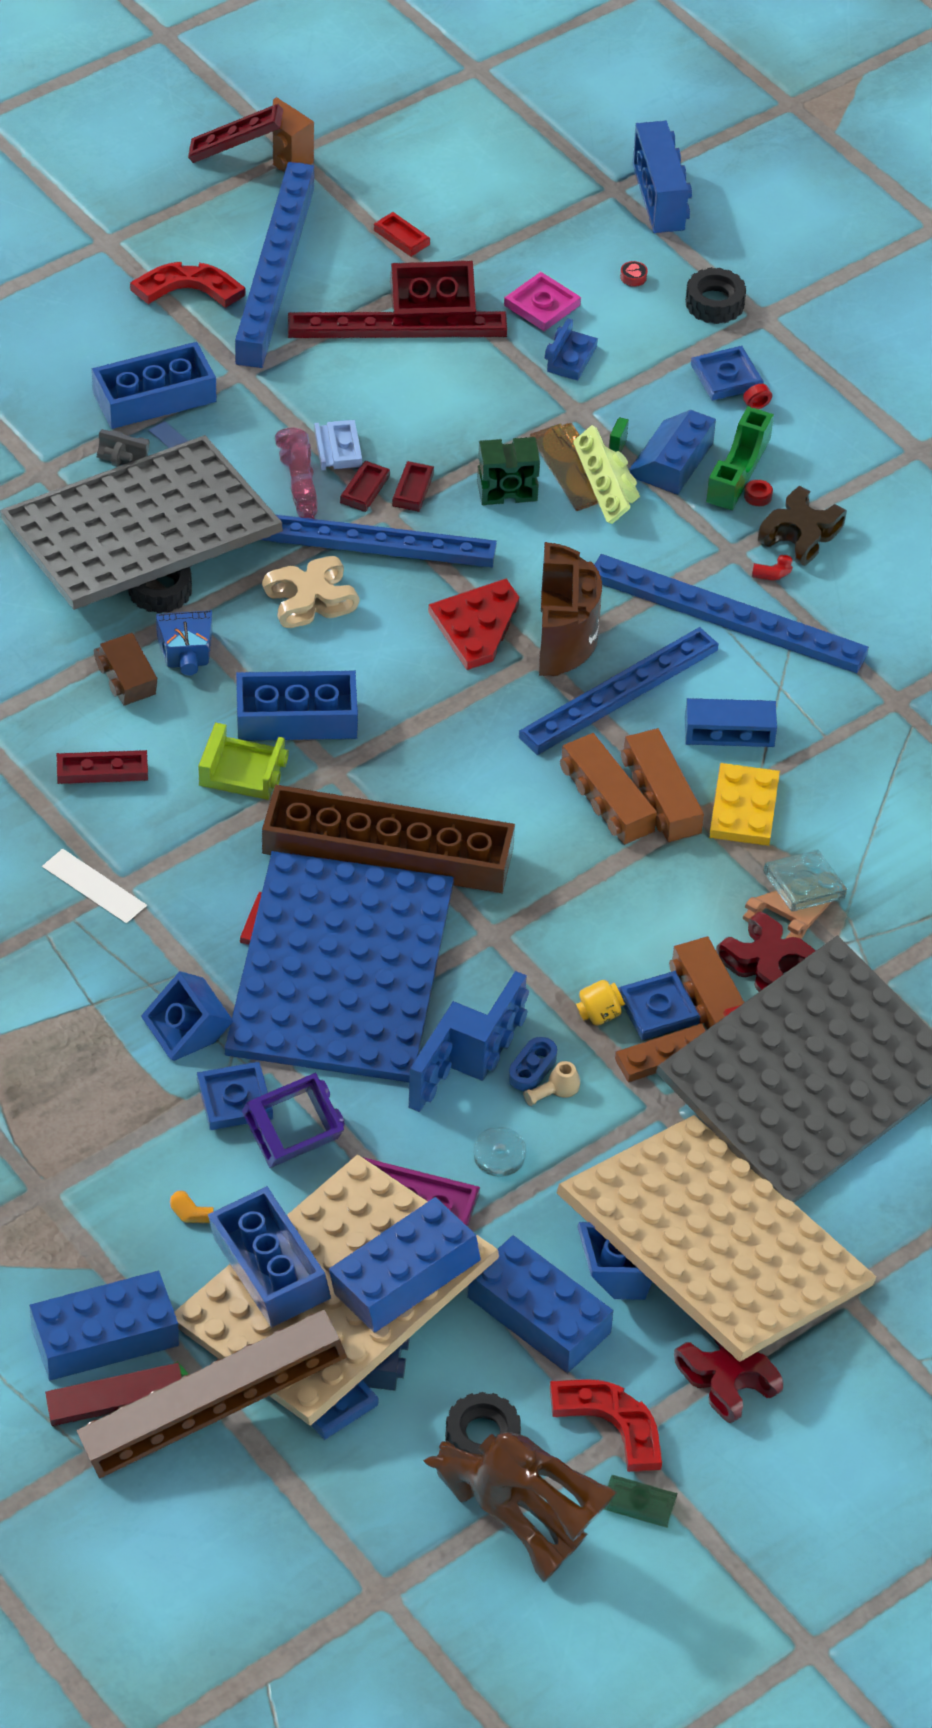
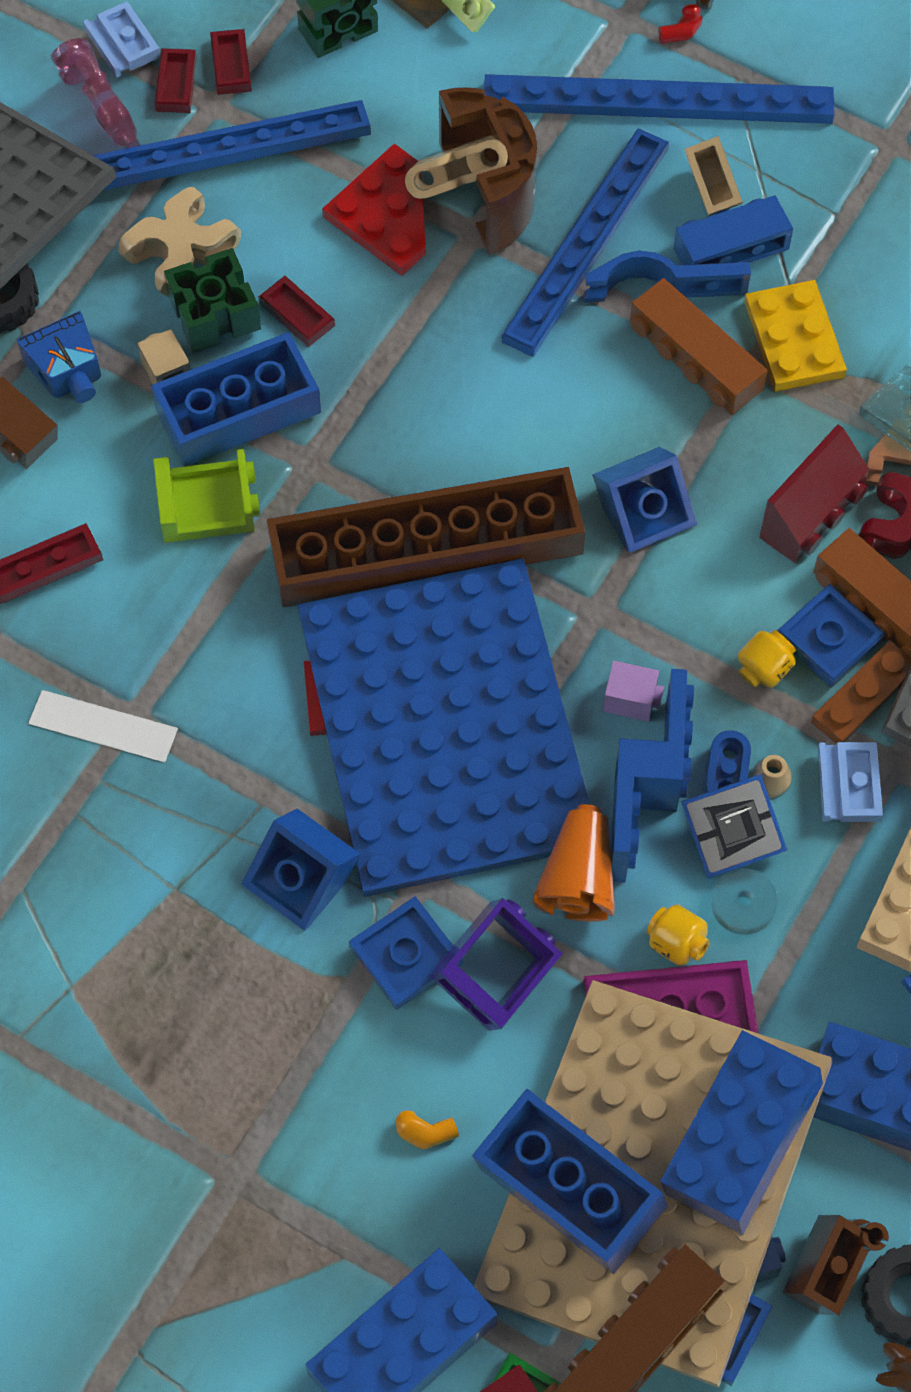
camera: 20 degrees left, 15 degrees up
(257, 658) = (162, 356): none -> tan brick
(312, 635) = (212, 300): none -> dark green brick
(374, 666) = (296, 311): none -> dark red tile
(382, 1083) = (579, 869): none -> orange cone
(436, 1151) = (678, 934): none -> yellow head
(436, 1383) = (832, 1262): none -> hinge
(484, 987) = (632, 691): none -> lavender brick
(515, 1096) = (734, 826): none -> slope
(528, 601) = (454, 167): none -> tan piece
(567, 871) = (645, 498): none -> blue slope
(608, 788) = (639, 374): dark orange brick -> none
(619, 1102) = (850, 782): none -> light blue plate
(679, 738) = (689, 280): none -> blue piece
(693, 906) = (815, 496): none -> dark red slope
(736, 672) = (713, 176): none -> tan slope

